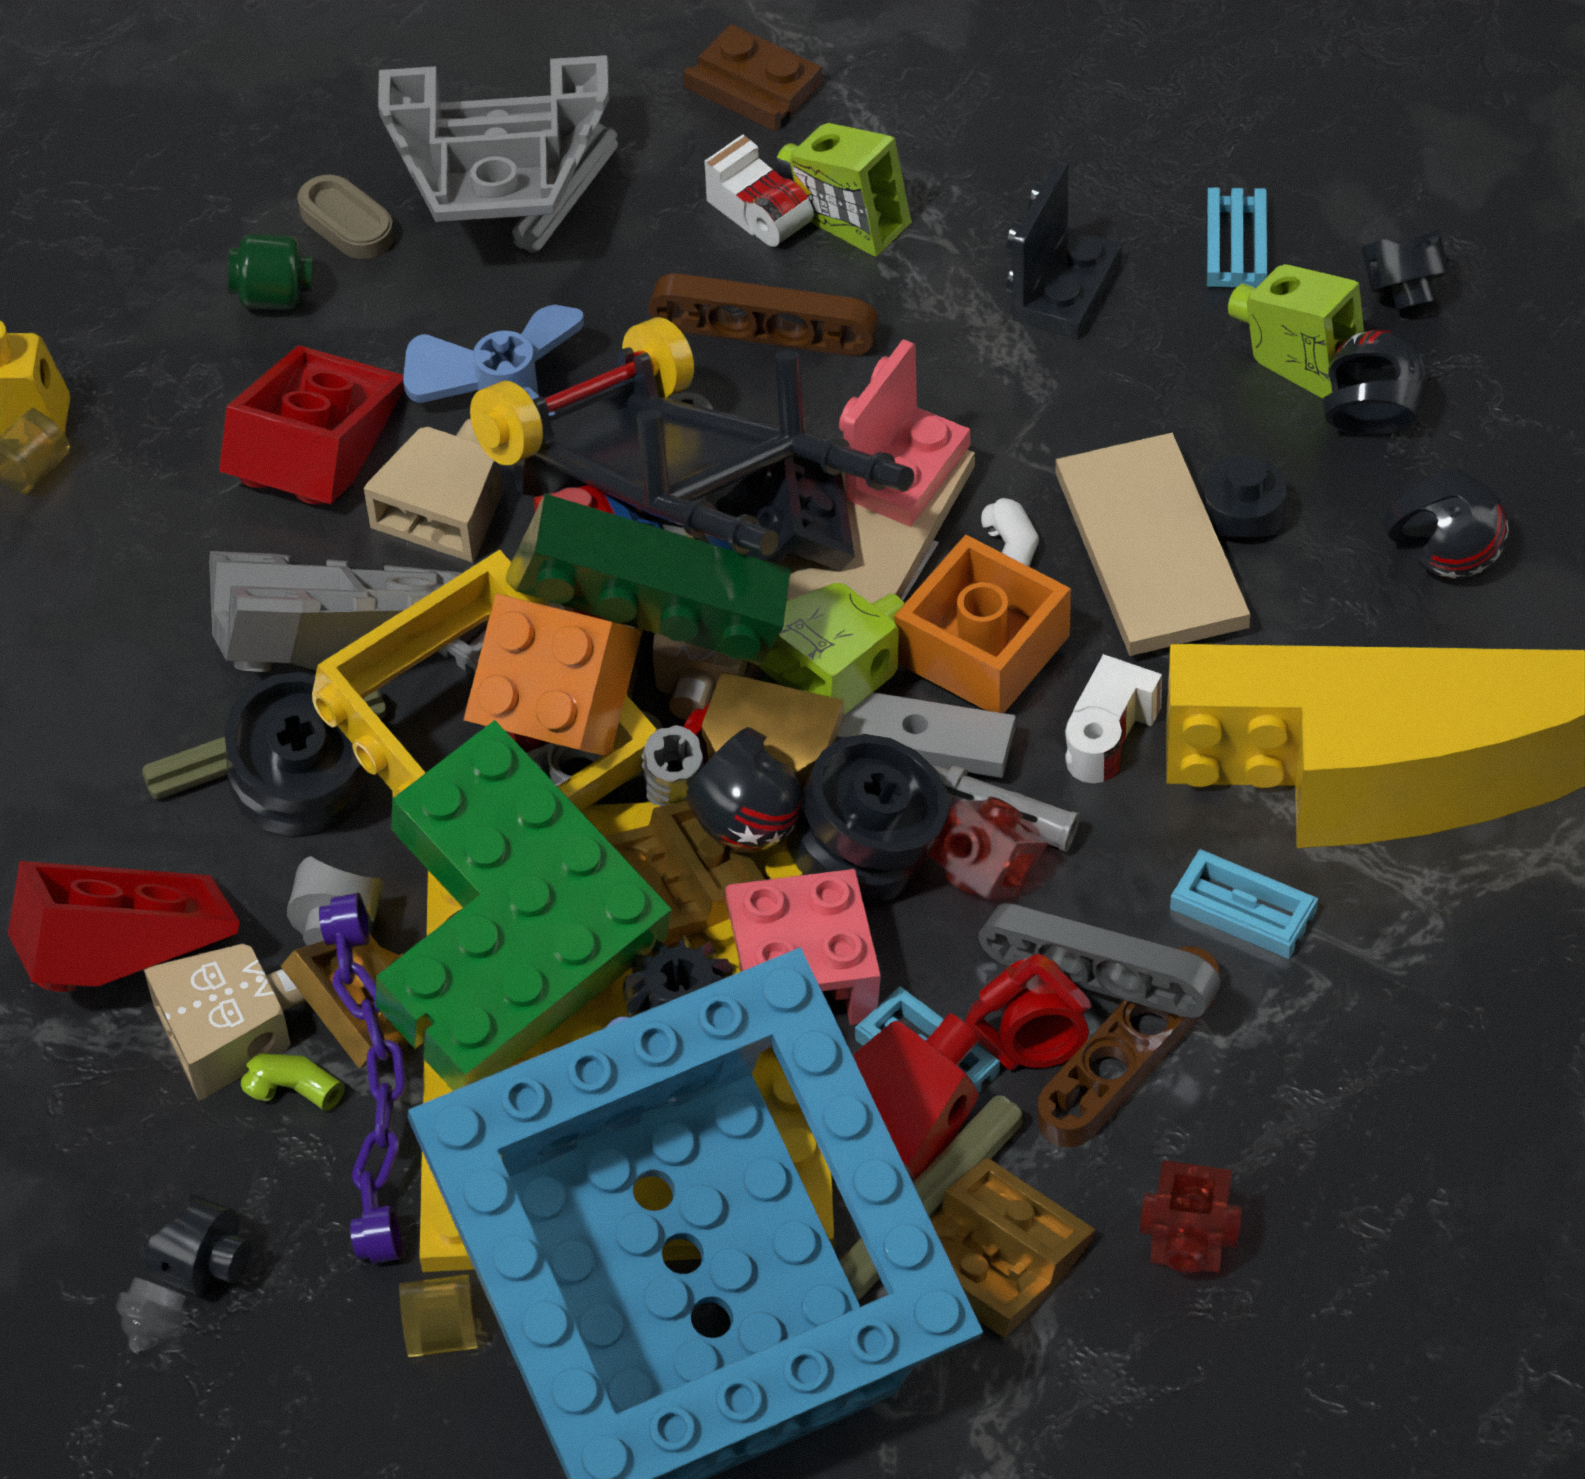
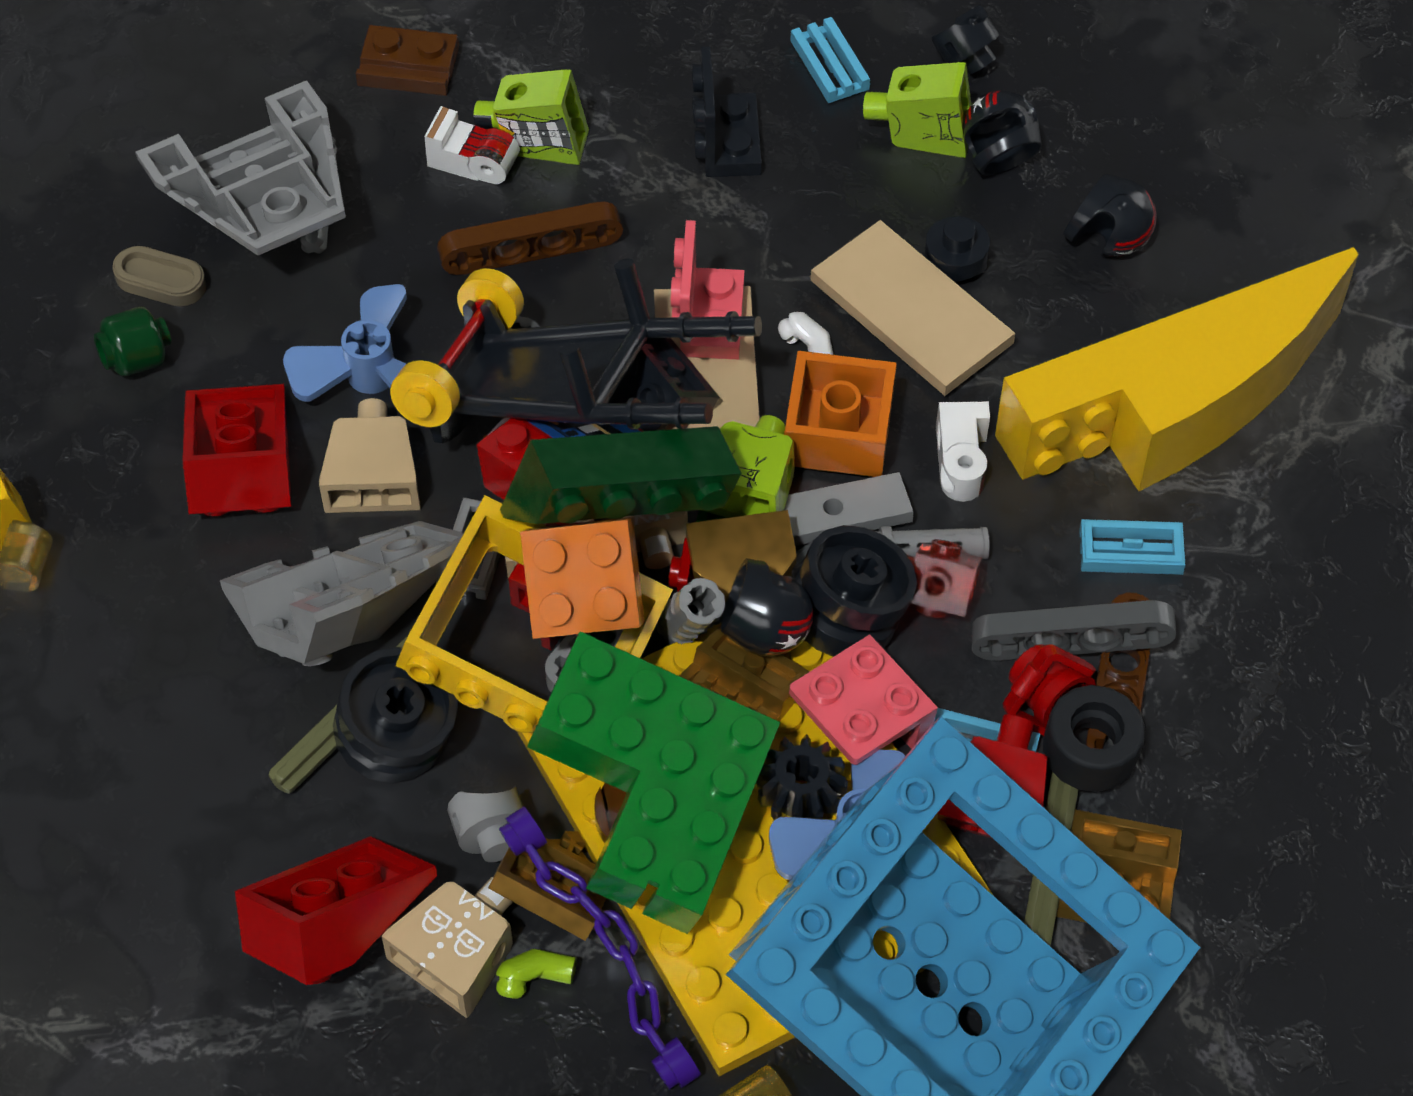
camera: 30 degrees left, 5 degrees up
(1049, 1046) = (1095, 709): none -> black tyre
(1191, 1217) = (1250, 794): clear red brick -> none

